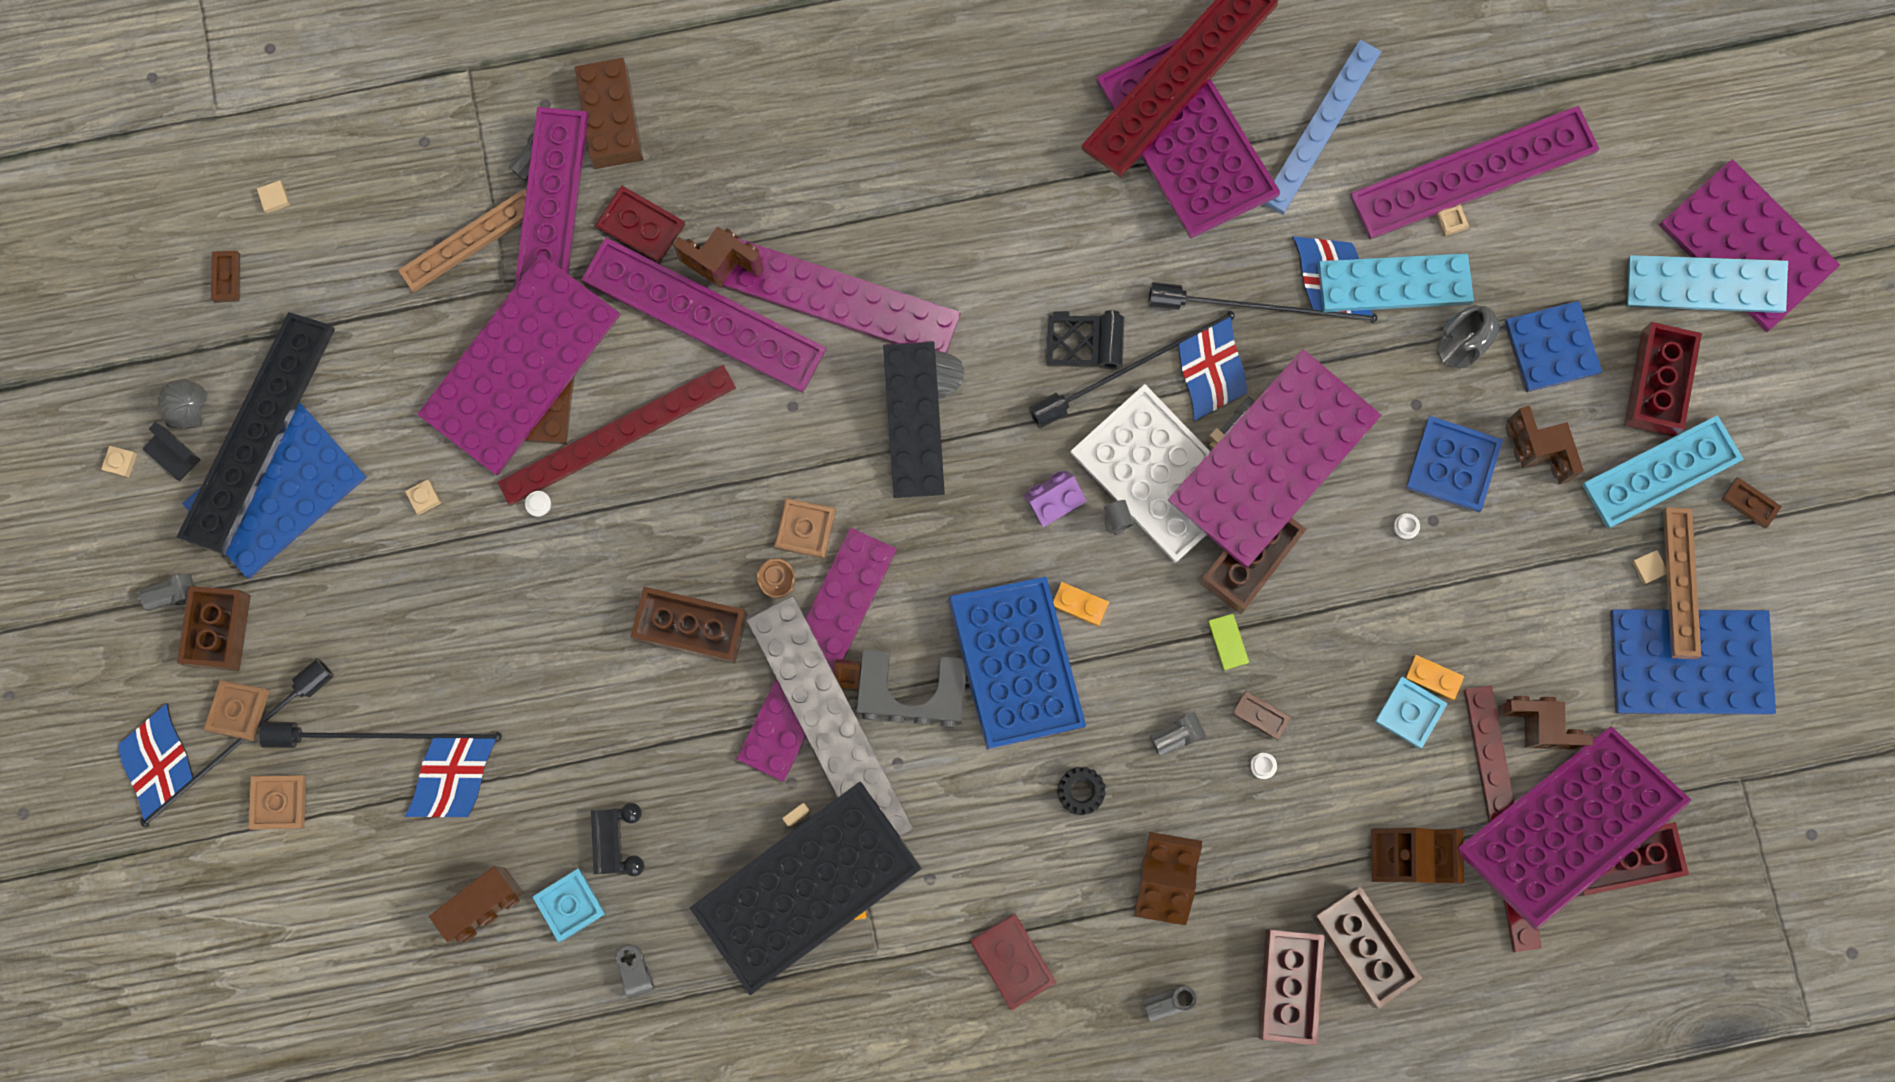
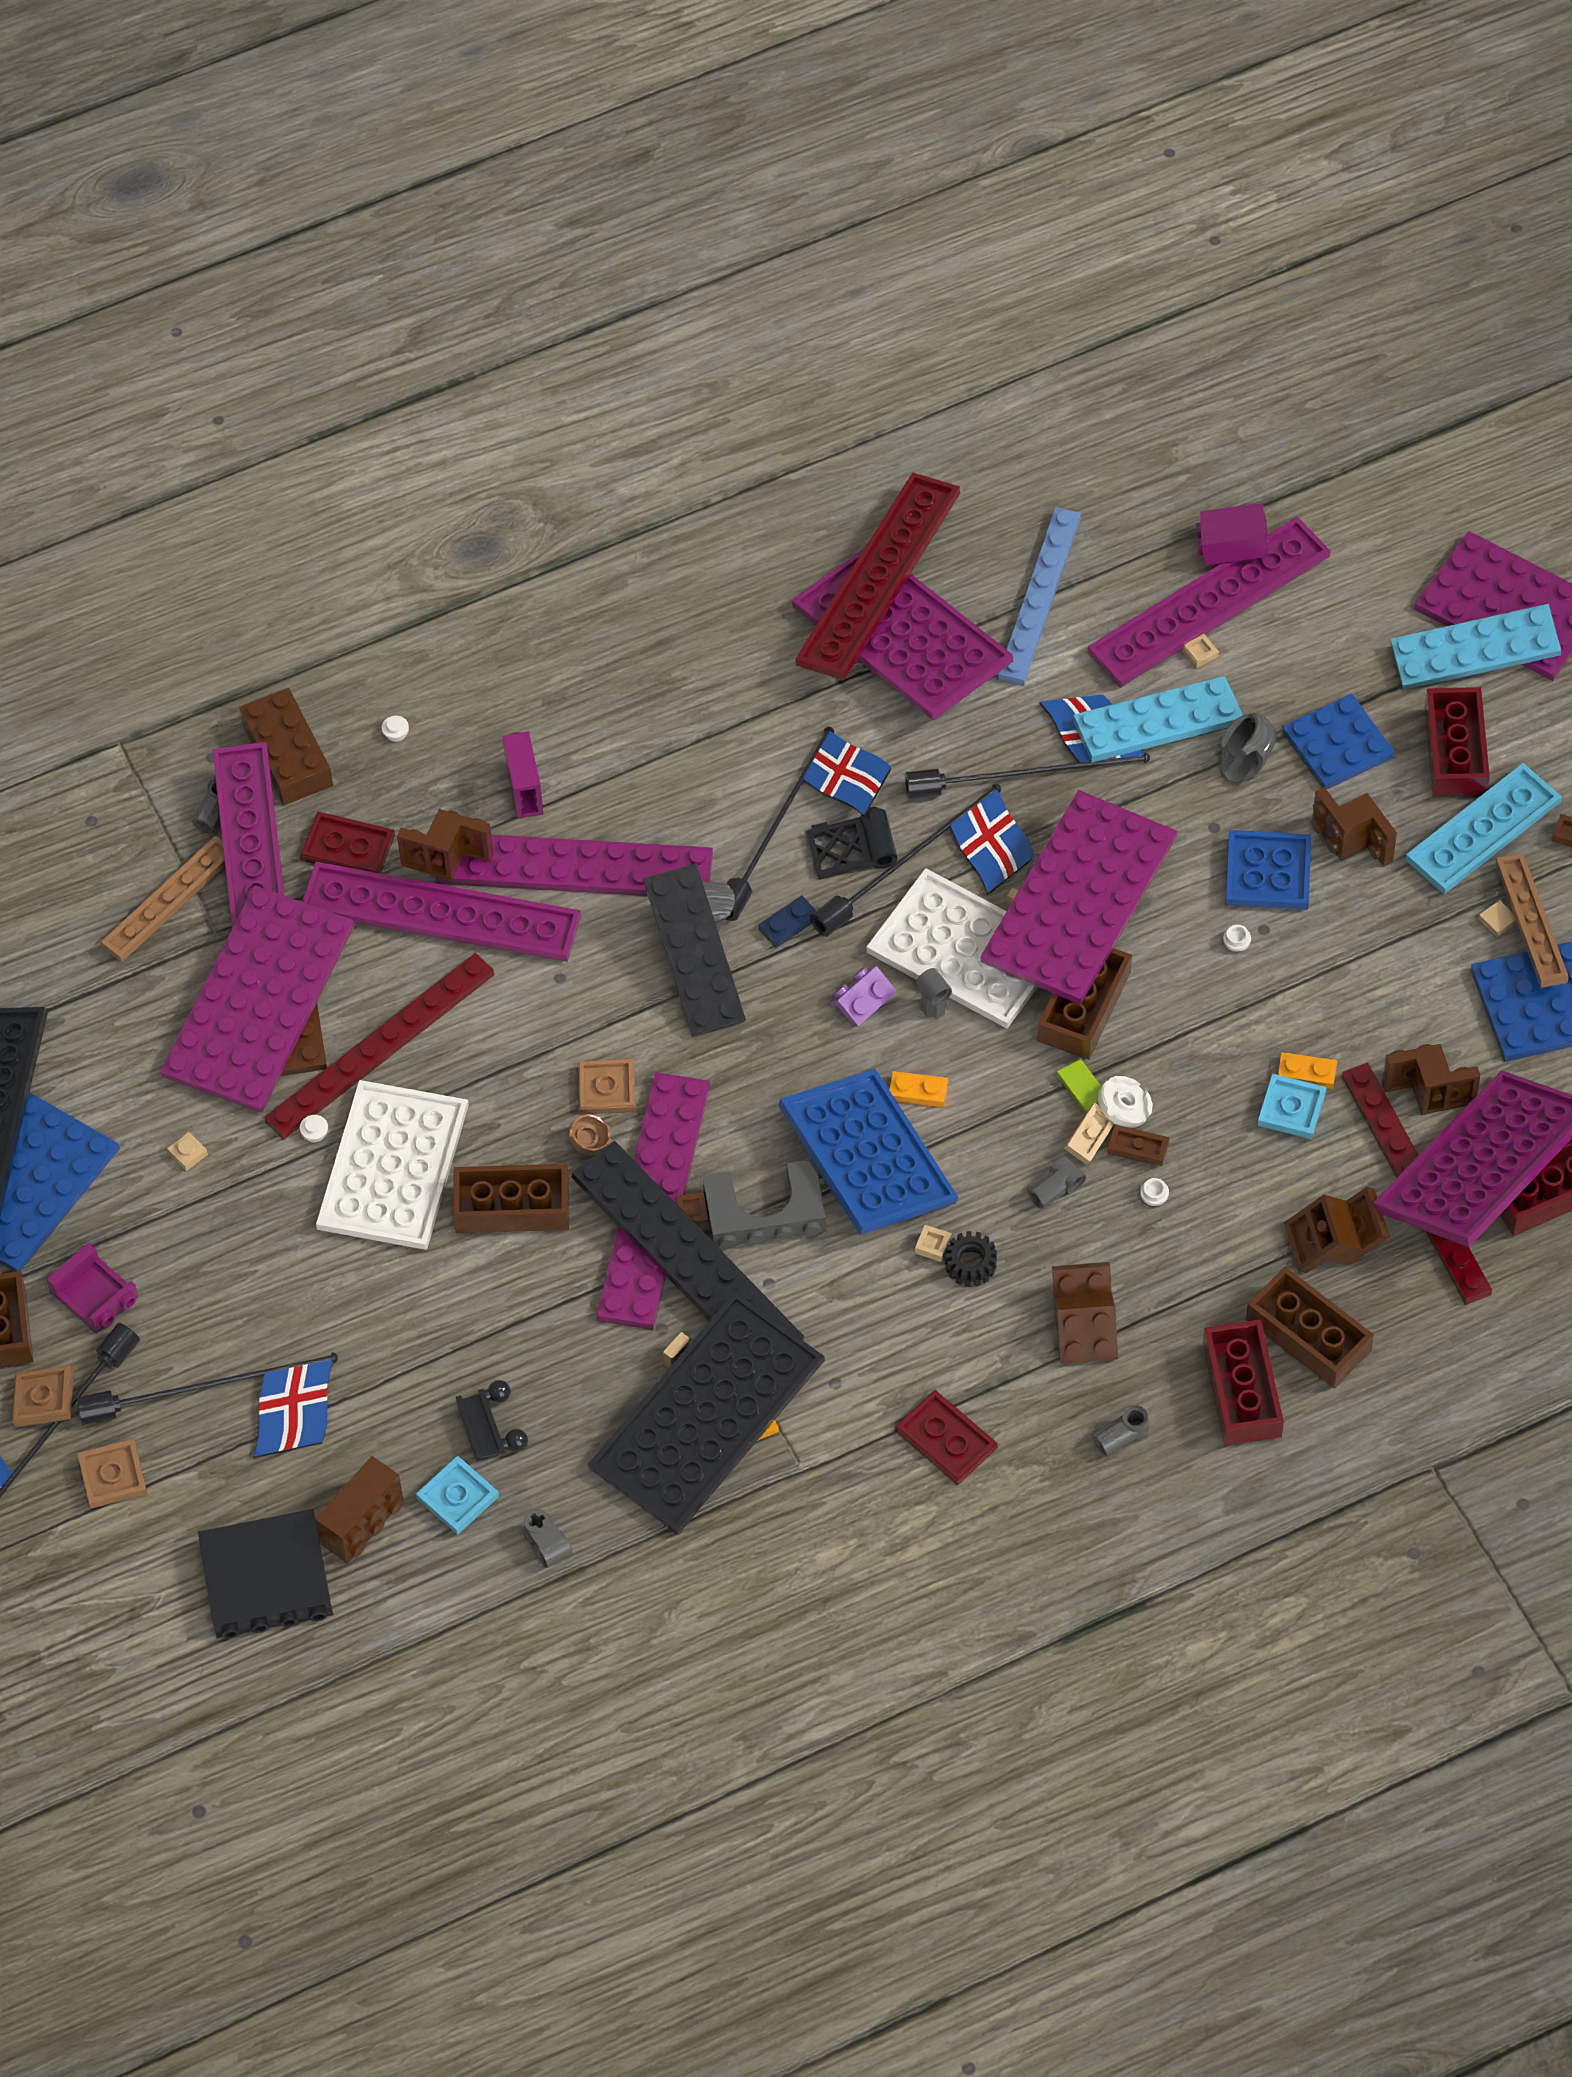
camera: 15 degrees left, 20 degrees down
(306, 614) = (92, 1289): none -> magenta panel
(380, 940) = (265, 1574): none -> black panel
(596, 559) = (392, 1165): none -> white plate
(711, 117) = (395, 728): none -> white plate
(808, 198) = (523, 774): none -> magenta brick
(1008, 403) = (787, 921): none -> dark blue plate
(1052, 765) = (933, 1243): none -> tan plate
(1094, 268) = (836, 772): none -> flag
(1221, 693) = (1089, 1134): none -> tan plate
(1271, 667) = (1124, 1102): none -> white plate
(1514, 111) = (1232, 534): none -> magenta brick

